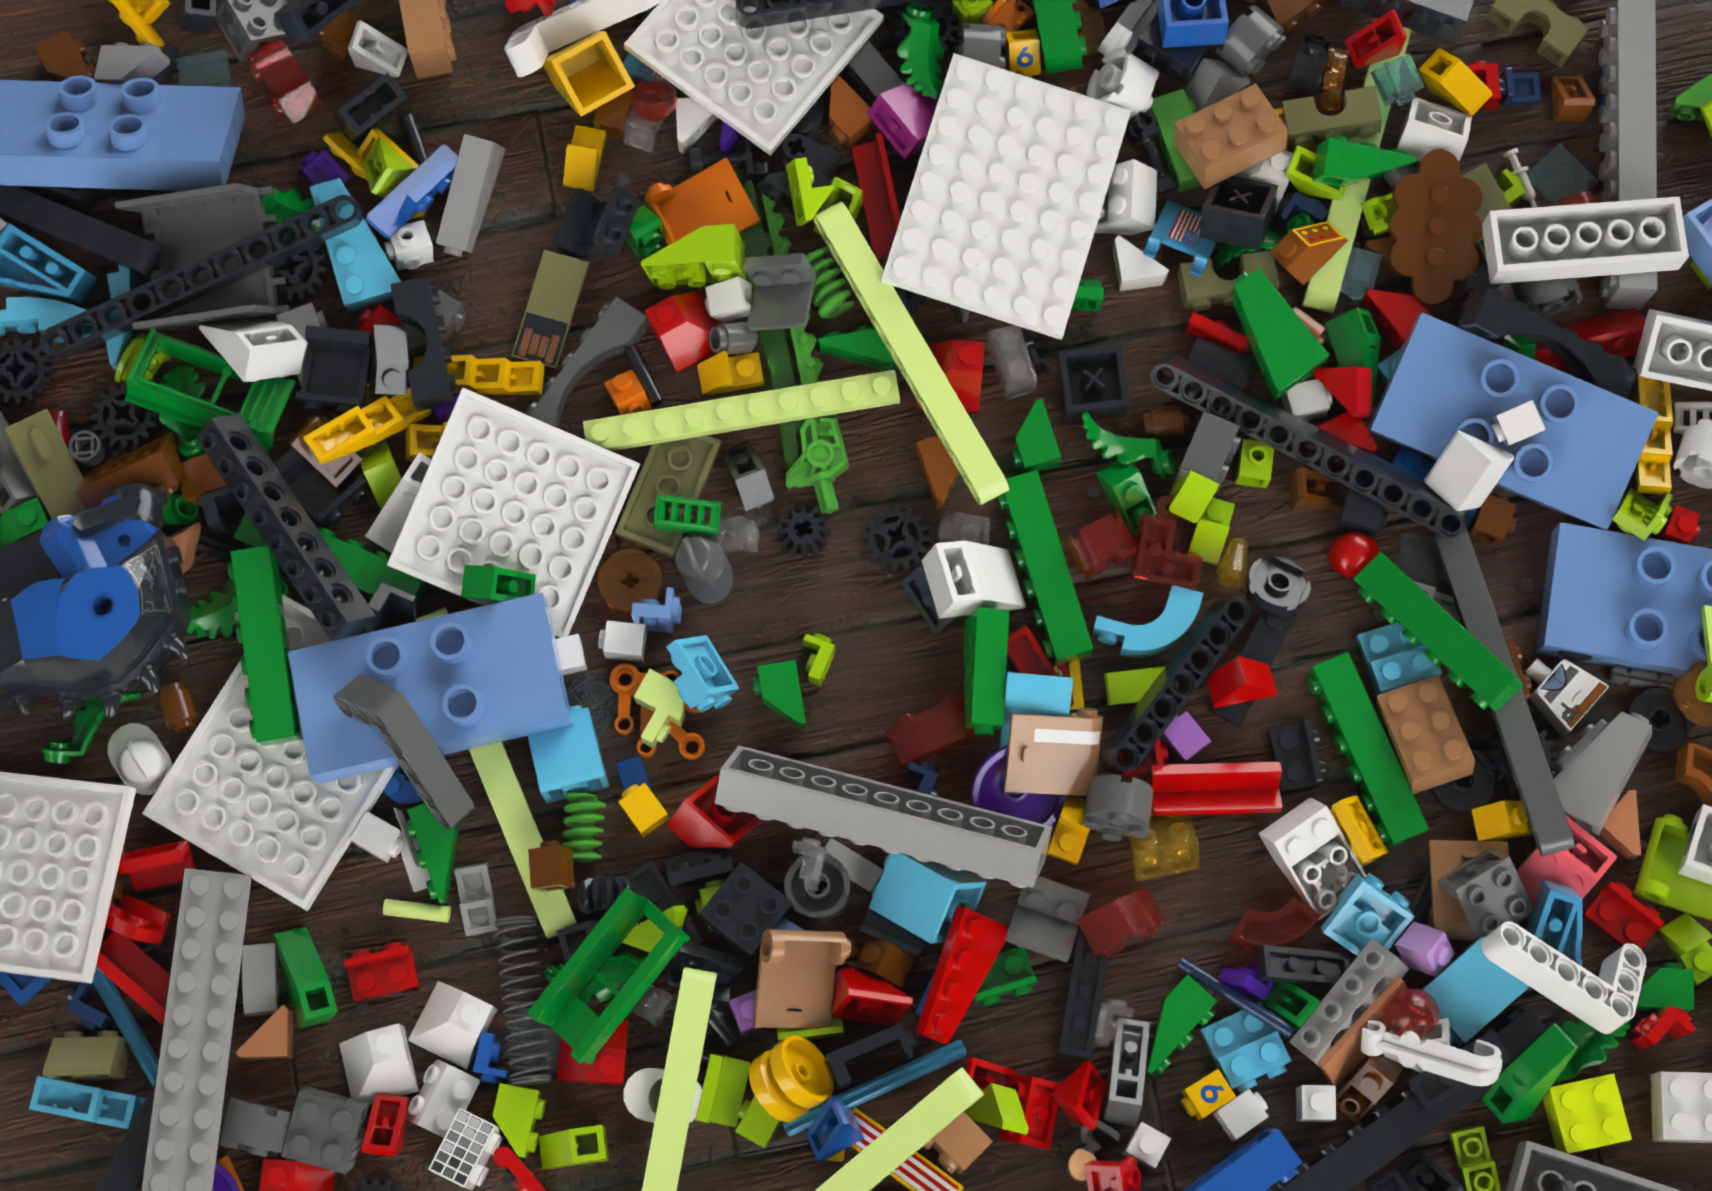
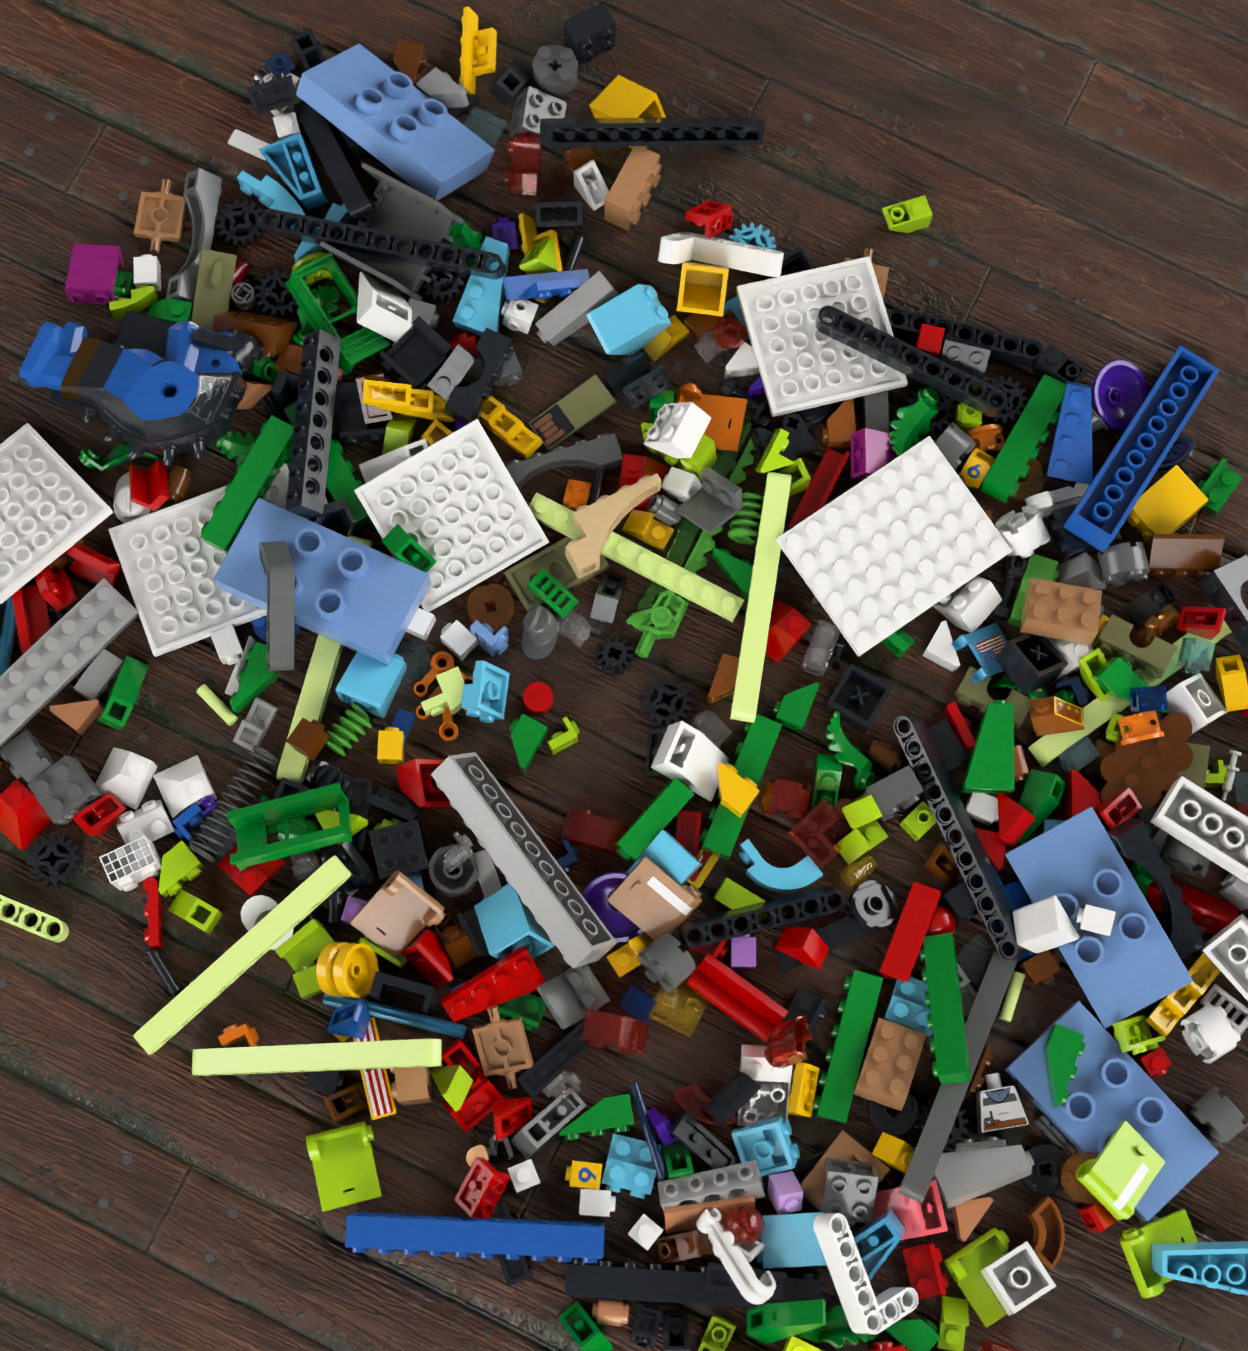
camera: 35 degrees right, 0 degrees up
(151, 730) = (149, 486): none -> red panel
(381, 972) = (169, 725): red bracket -> none
(496, 1021) = (208, 803): none -> dark purple hand
(537, 163) = (629, 320): none -> medium azure slope
(676, 402) = (600, 519): none -> tan arch
(687, 239) = (677, 429): none -> white slope
(759, 639) = (538, 698): none -> red piece
(1017, 1030) = (503, 1047): none -> medium nougat plate
(1045, 576) = (735, 791): none -> yellow slope
(1121, 874) = (638, 1003): none -> clear blue panel
(1298, 893) = (731, 1097): none -> black brick
(1308, 792) = (787, 1042): none -> clear red brick
(1337, 584) = (910, 932): none -> red panel
(1391, 158) = (1148, 698): none -> clear blue panel
(1404, 196) = (1139, 727): none -> orange piece
(1446, 295) = (1119, 808): none -> red slope
(1489, 572) = (1012, 996): none -> yellowish green piece
(1589, 592) = (1060, 1058): none -> green slope

